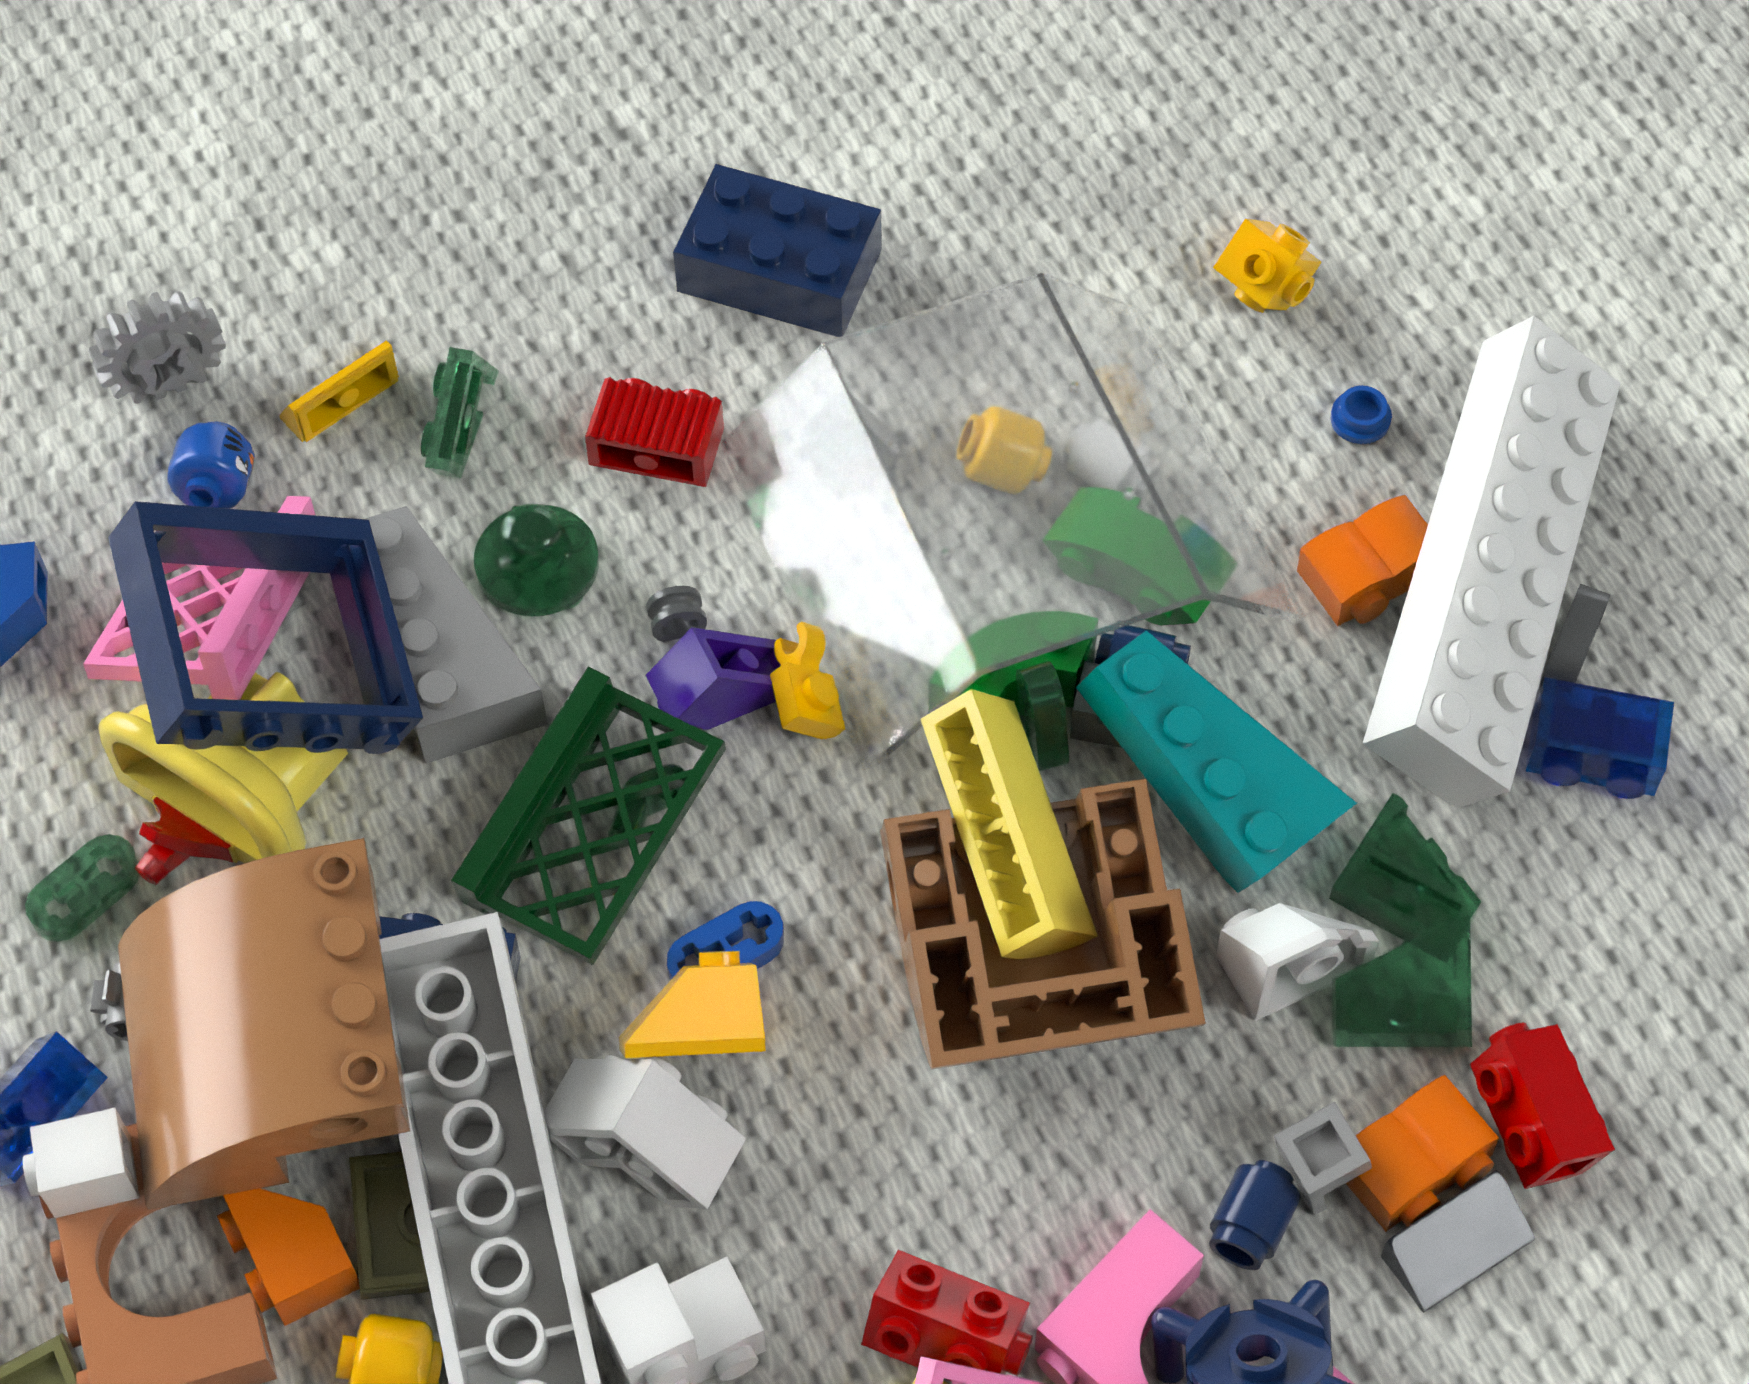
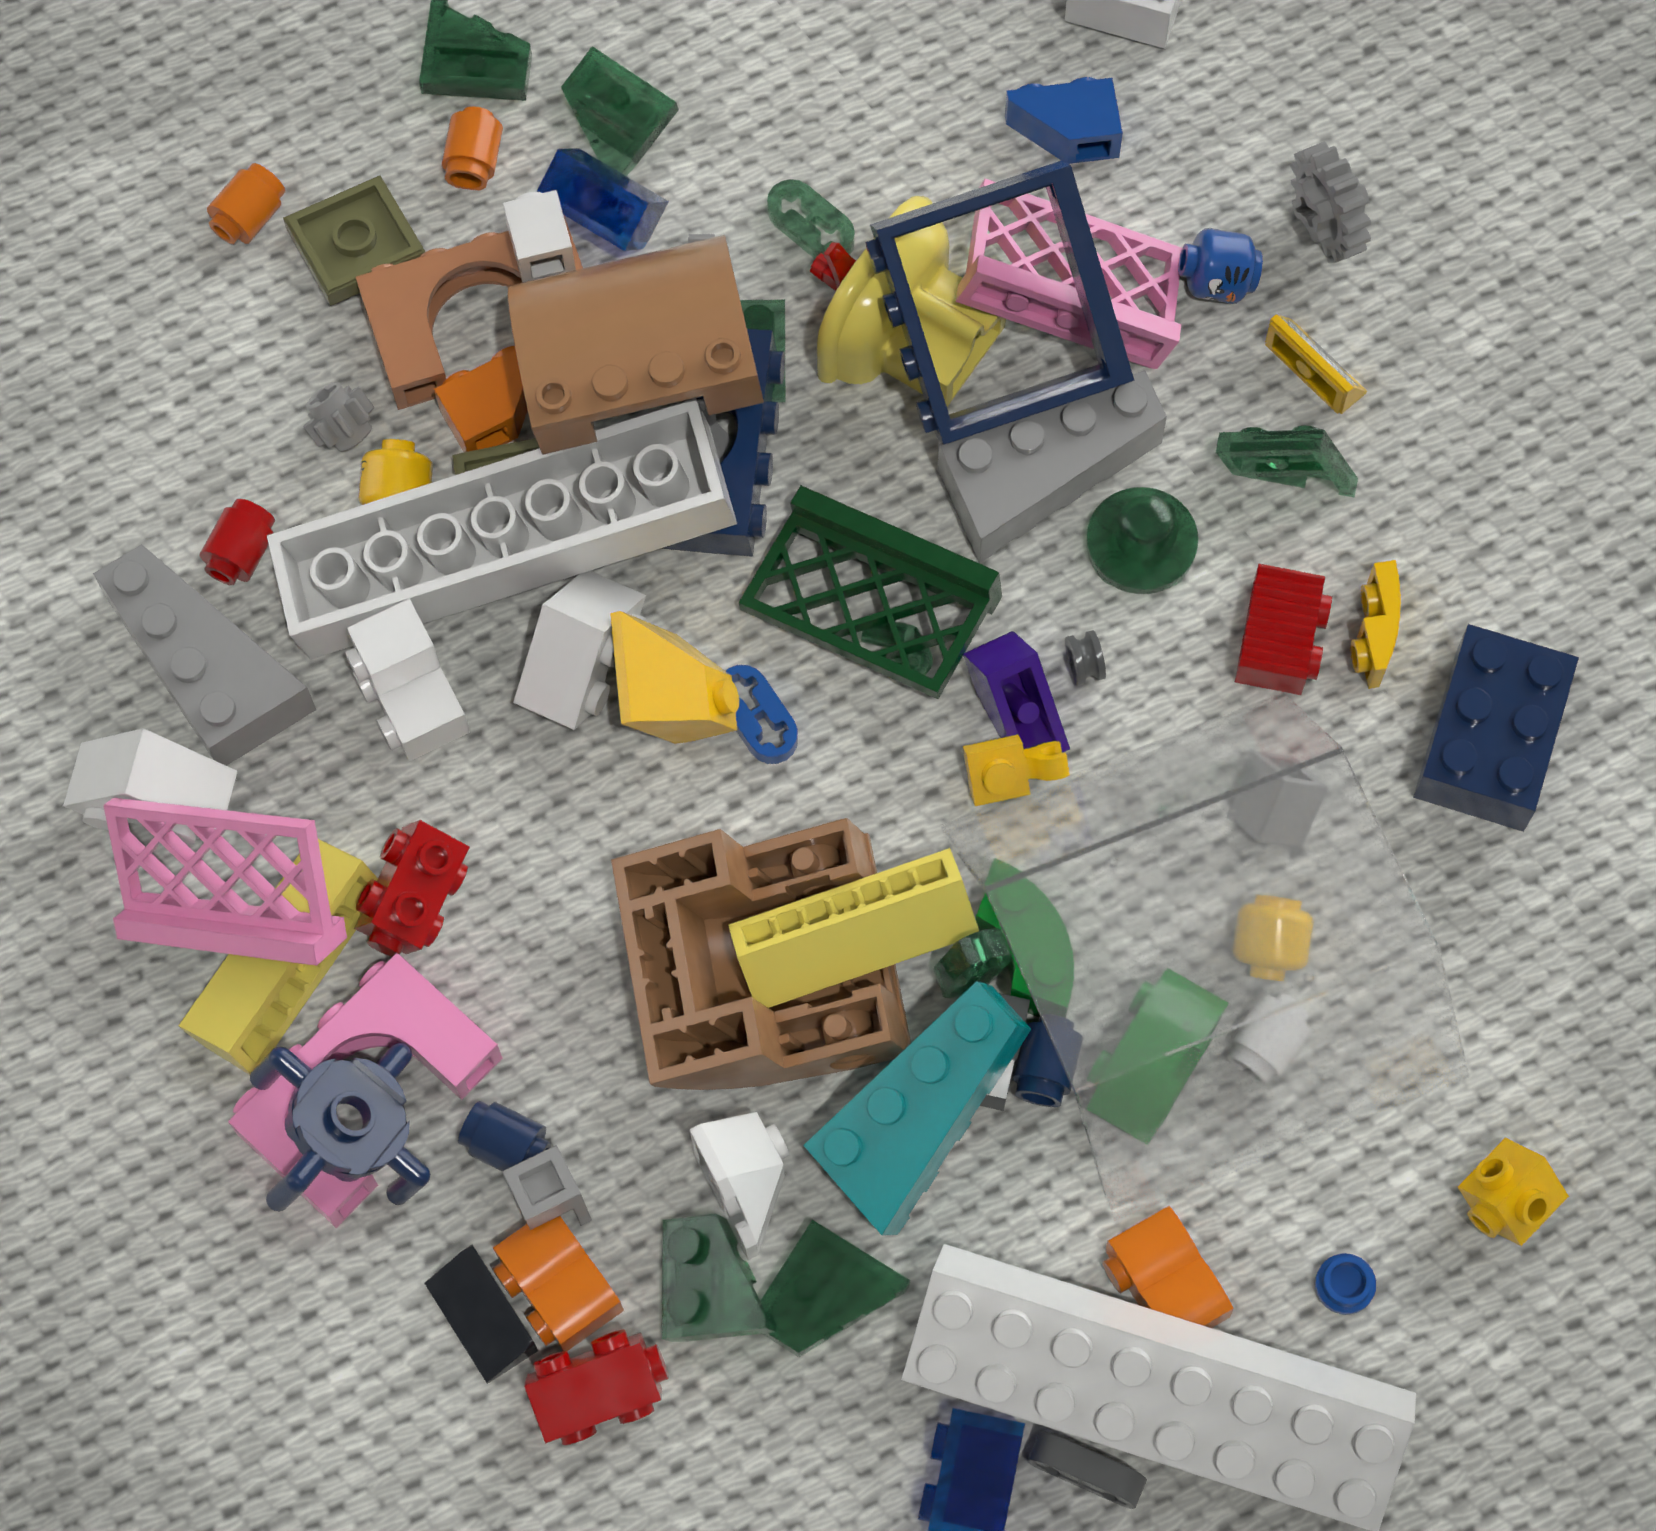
camera: 90 degrees right, 10 degrees up
(681, 345) = (1379, 629): none -> yellow slope

